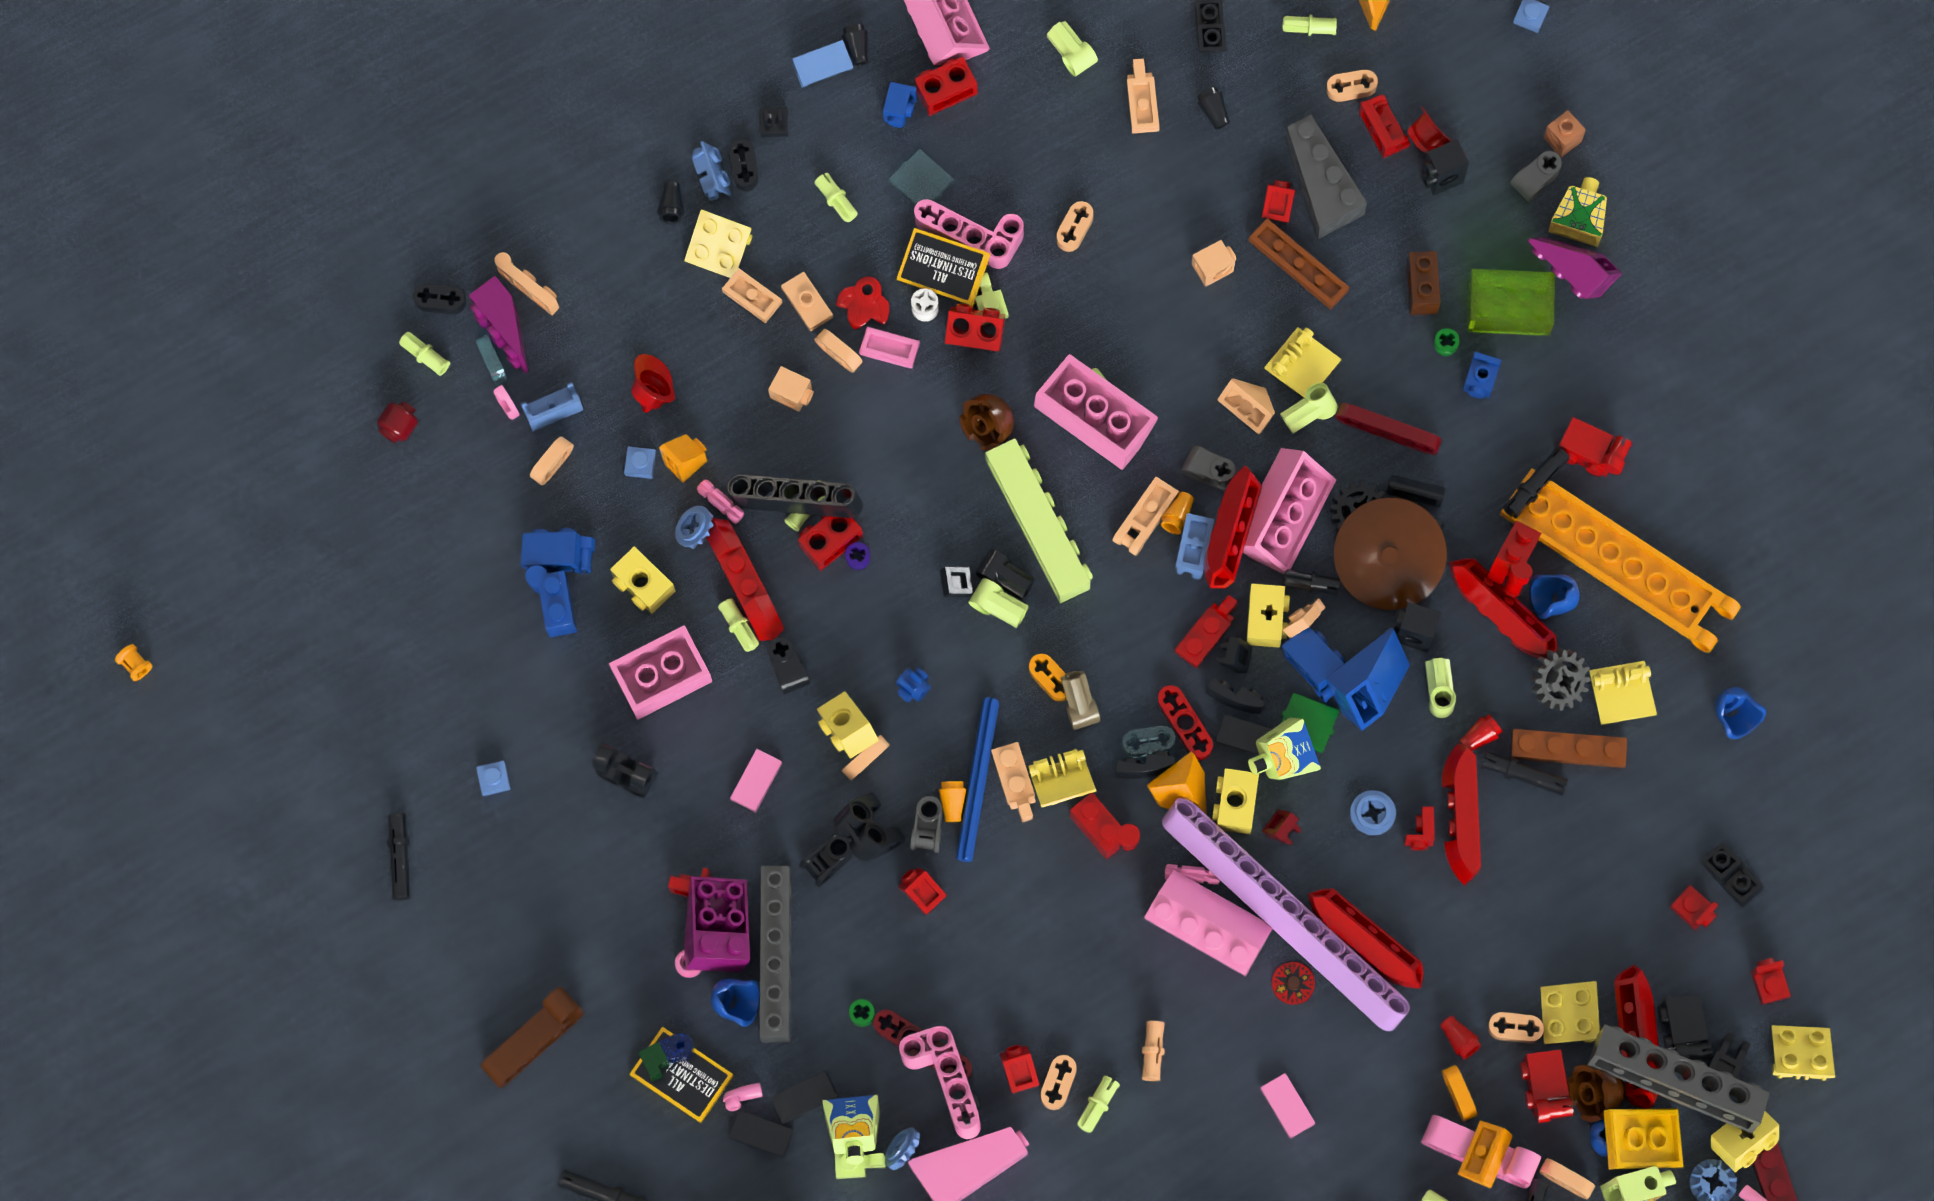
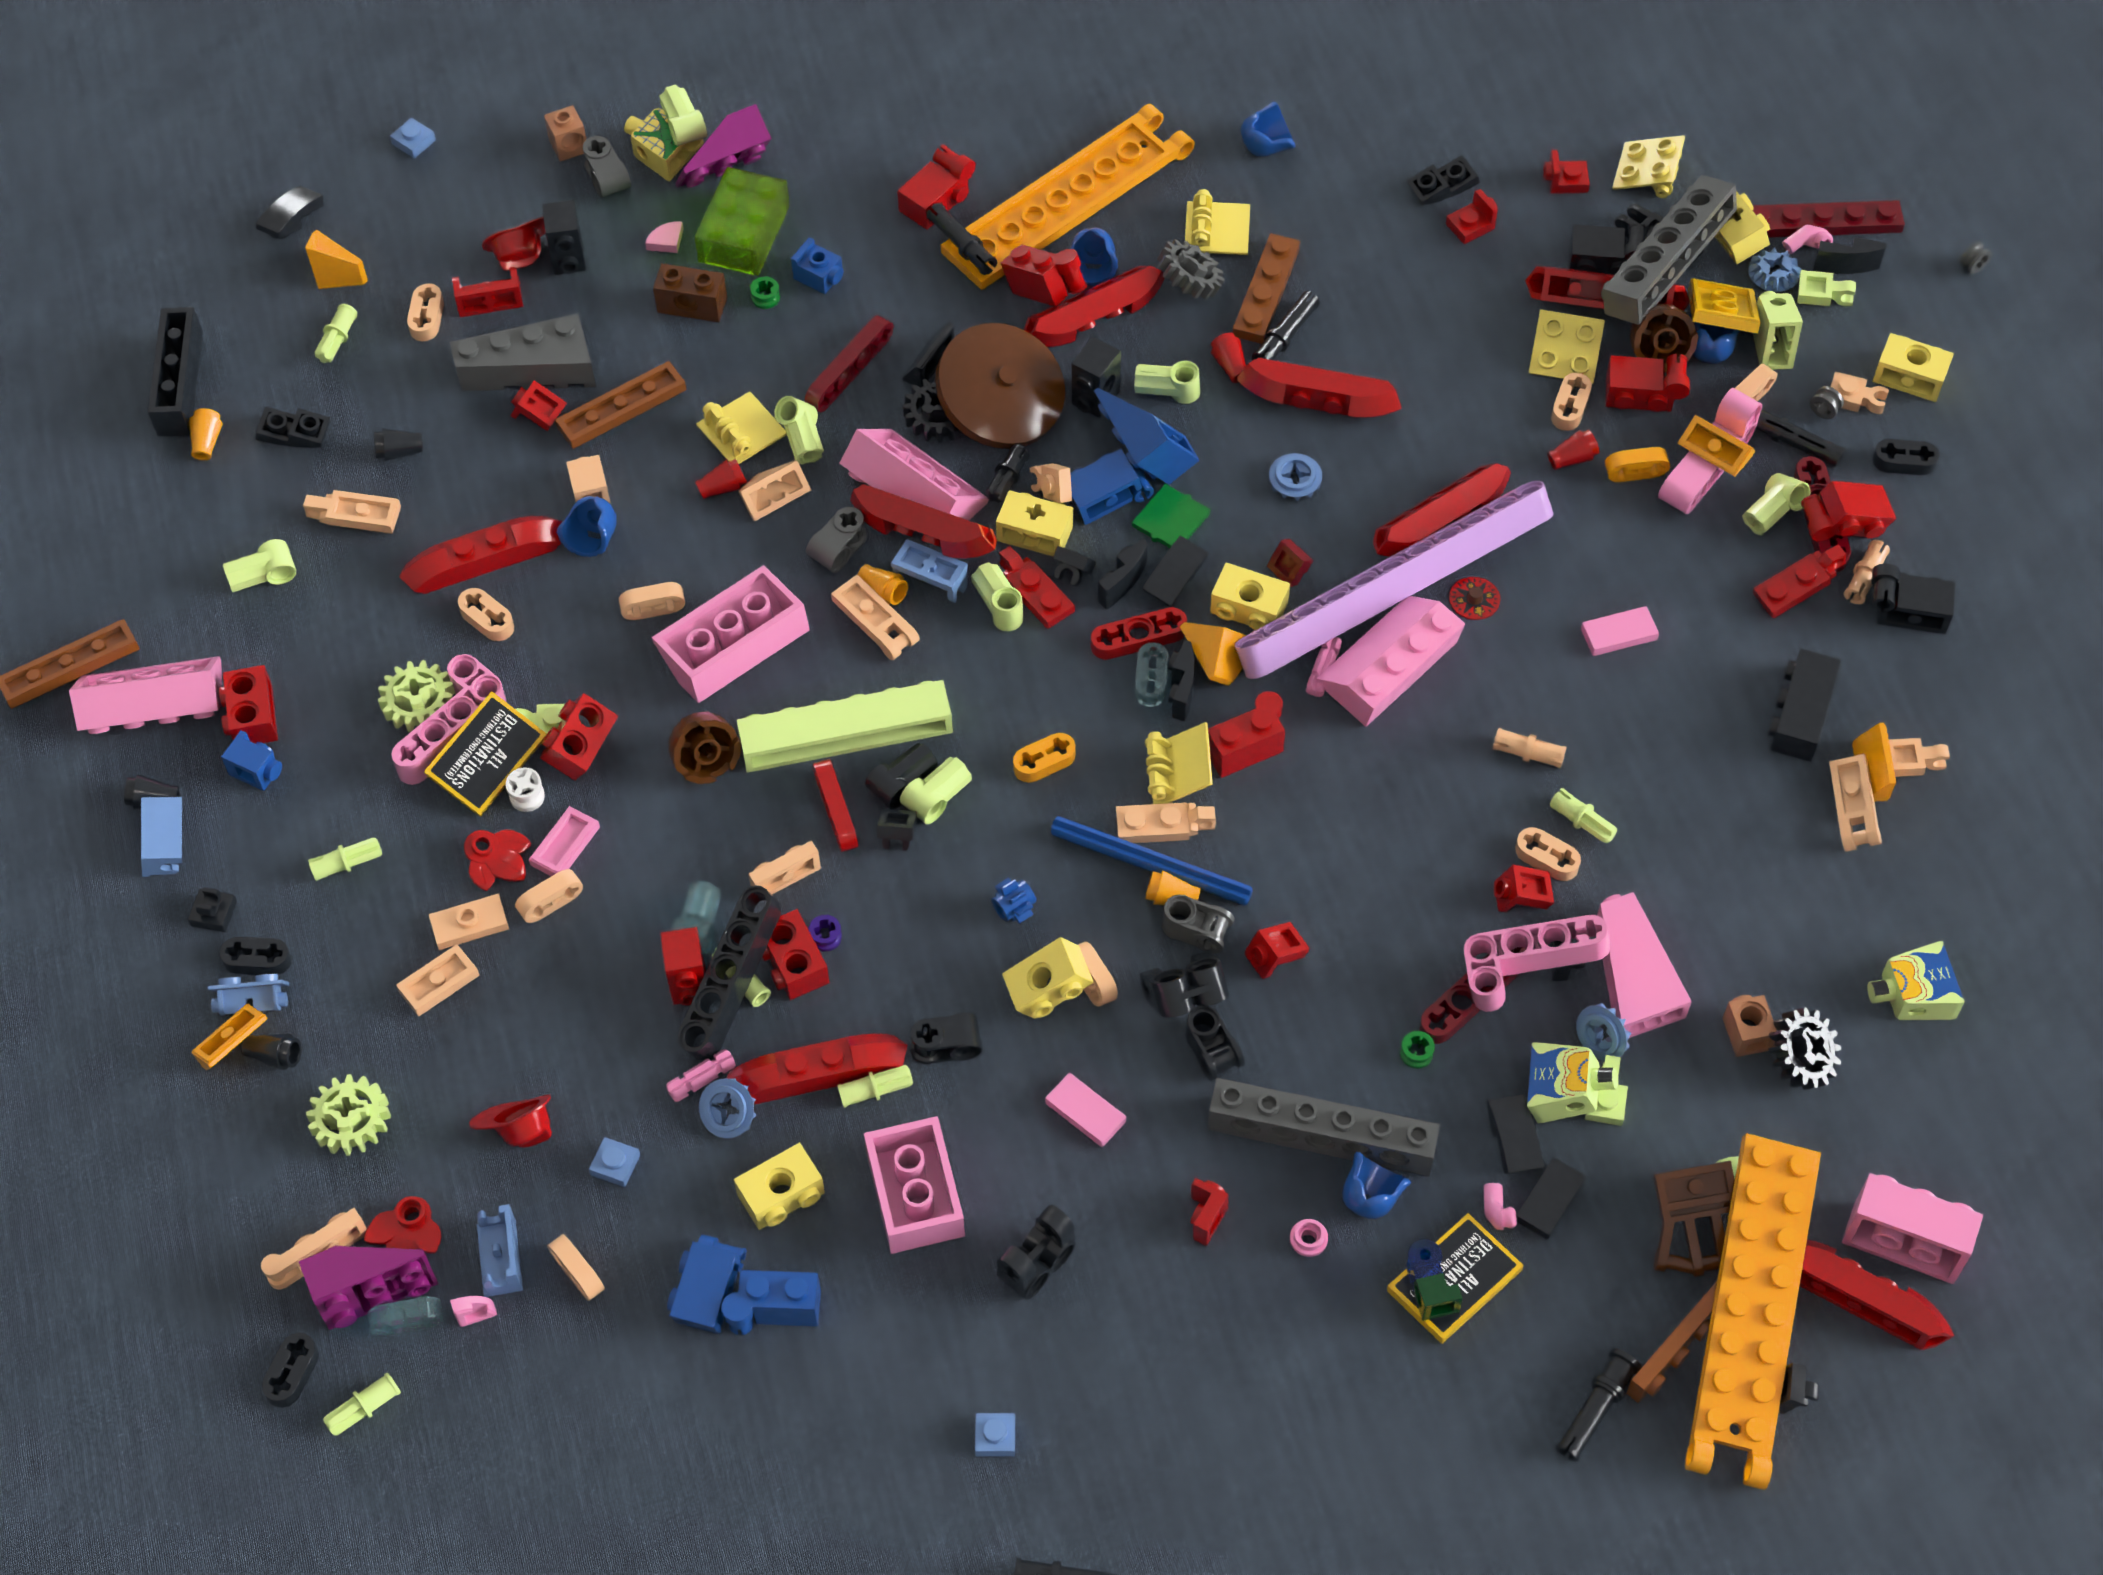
camera: 80 degrees left, 15 degrees down
(397, 421) = (450, 1455): dark red head -> none
(533, 1038) = (1388, 1478): reddish brown beam -> none
(552, 339) = (397, 1232): none -> red plate
(619, 274) = (350, 1116): none -> yellowish green gear
(670, 170) = (228, 1036): none -> light orange slope
(683, 456) = (630, 1101): light orange slope -> none
(717, 925) = (1274, 1182): magenta slope -> none
(718, 244) = (352, 1004): light yellow hinge -> none
(791, 389) = (581, 959): light nougat brick -> none
(794, 461) = (683, 963): none -> red brick
(836, 461) = (700, 912): none -> clear light blue piece
(892, 503) = (787, 869): none -> light nougat plate
(921, 178) = (358, 764): clear light blue piece -> none
(966, 532) = (835, 805): none -> red beam
(990, 190) = (414, 694): none -> yellowish green gear
(1081, 706) = (1094, 726): dark tan piece -> none
(1115, 344) = (651, 601): none -> light nougat beam
(1129, 205) = (481, 552): none -> red brick
(1166, 268) = (592, 515): none -> blue hair
(1189, 603) = (999, 596): none -> yellowish green piece
(1247, 364) = (722, 479): none -> red cone
(1285, 751) = (1205, 529): torso -> none
(1425, 824) = (1328, 428): red bracket -> none
(1482, 247) = (665, 238): none -> bright pink tile
(1589, 224) = (683, 120): none -> yellowish green piece

